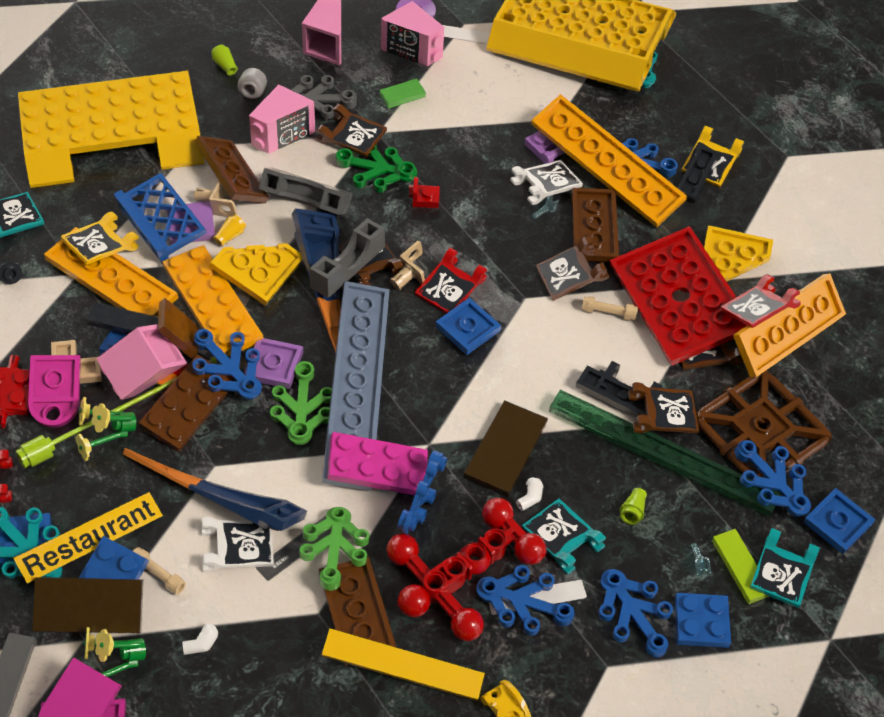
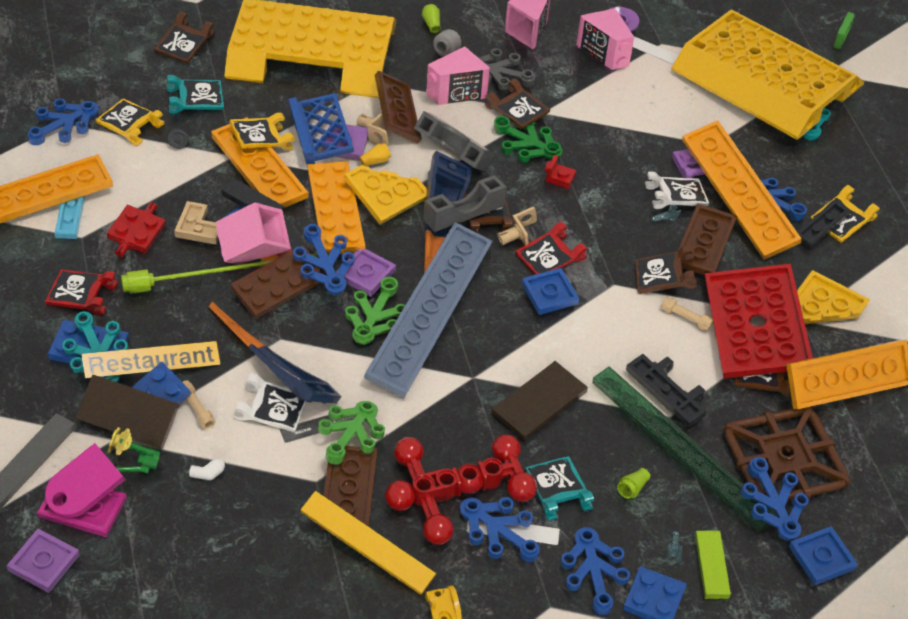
camera: 20 degrees right, 5 degrees down
(54, 385) = (174, 235): dark pink tile -> none
(121, 422) = (217, 279): plant -> none
(177, 327) = (293, 217): reddish brown tile -> none
(376, 463) = (418, 377): dark pink plate -> none
(402, 93) = (578, 86): bright green tile -> none
(409, 519) = (439, 411): blue plant -> none
(533, 495) = (546, 446): white arm -> none
(665, 409) = (697, 410): flag -> none
(760, 303) = (826, 344): flag -> none
(782, 572) = (748, 581): flag -> none

